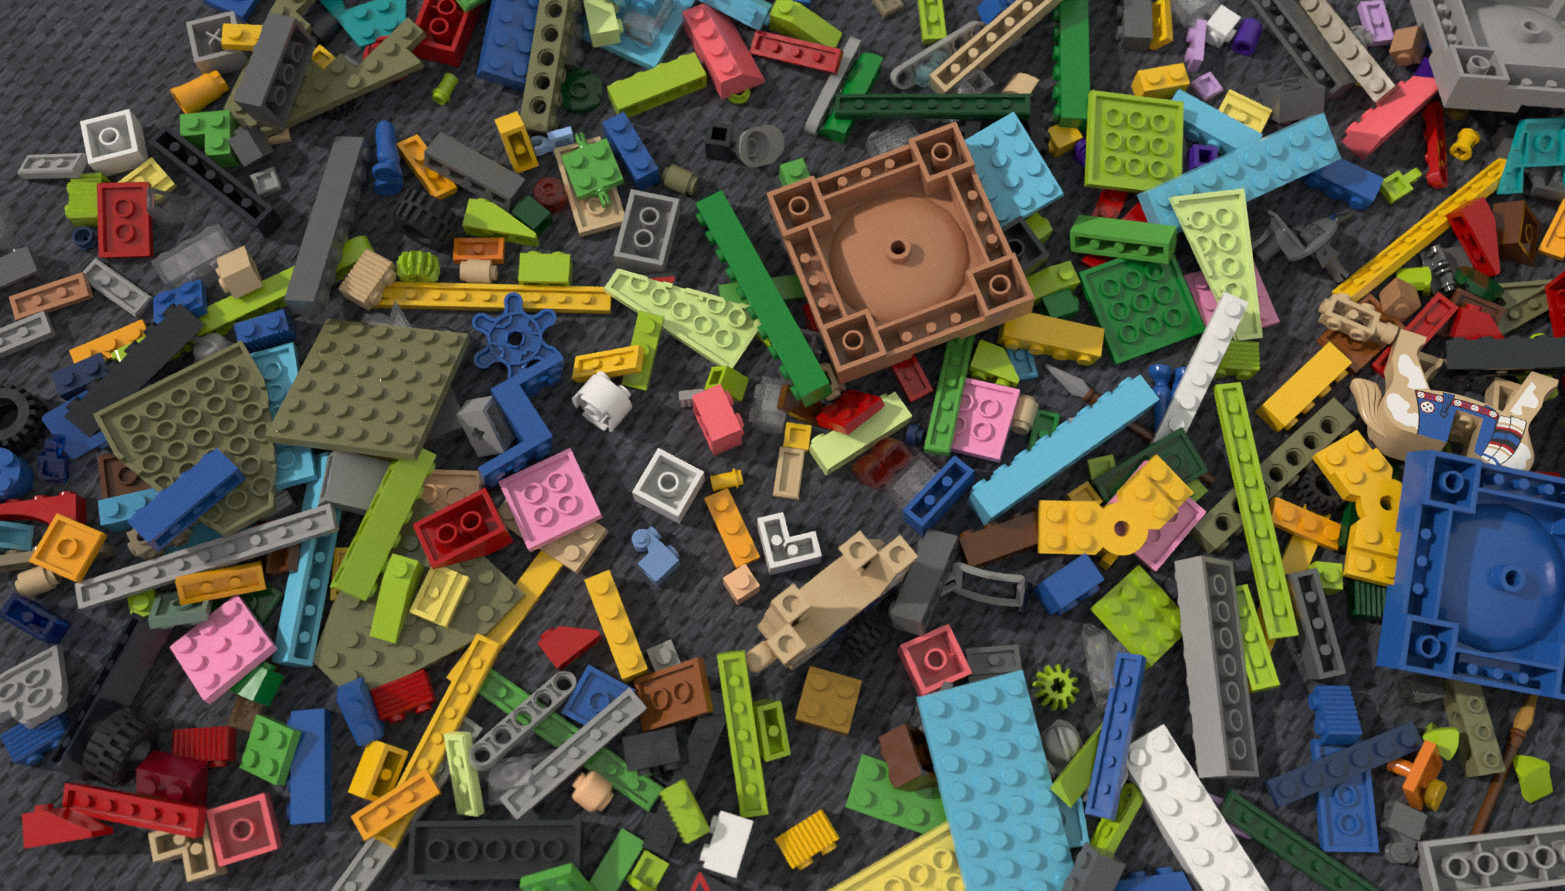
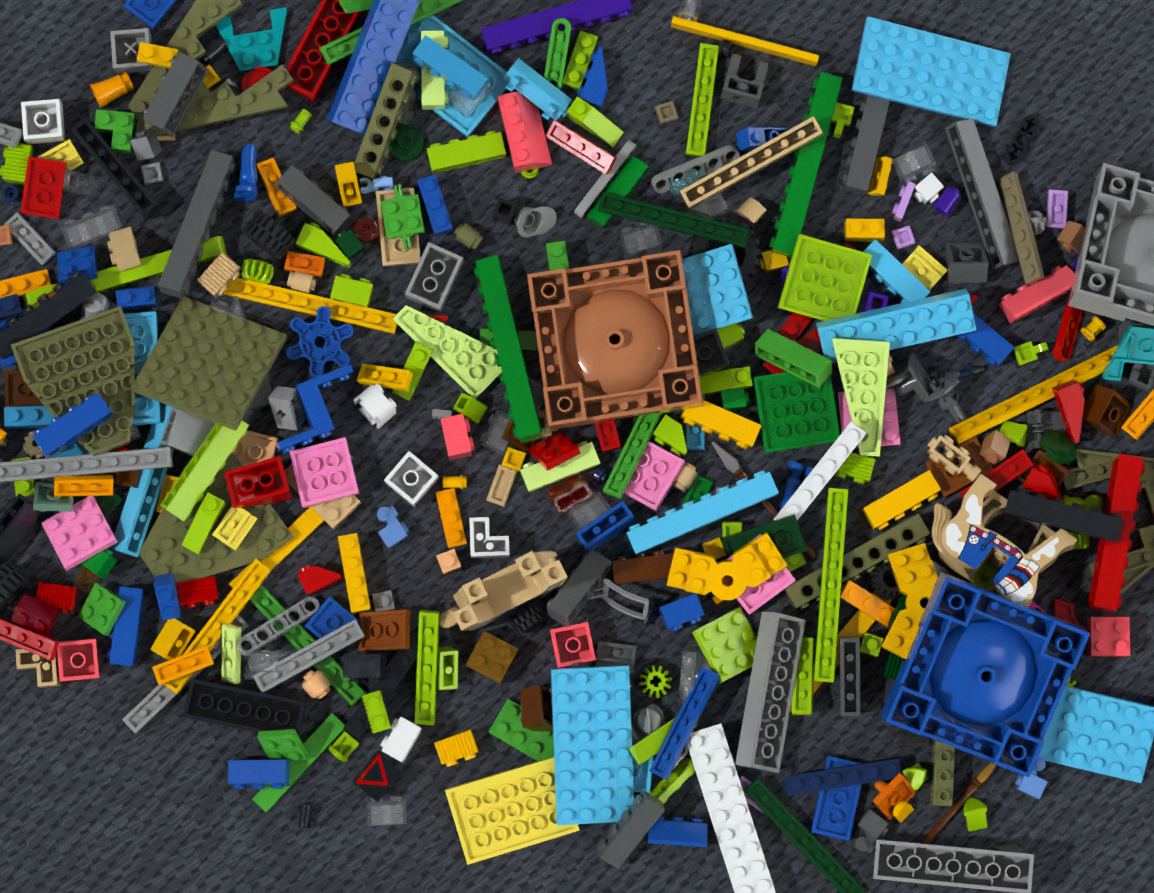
camera: 10 degrees right, 10 degrees up
(1335, 714) = (846, 743): blue brick -> none

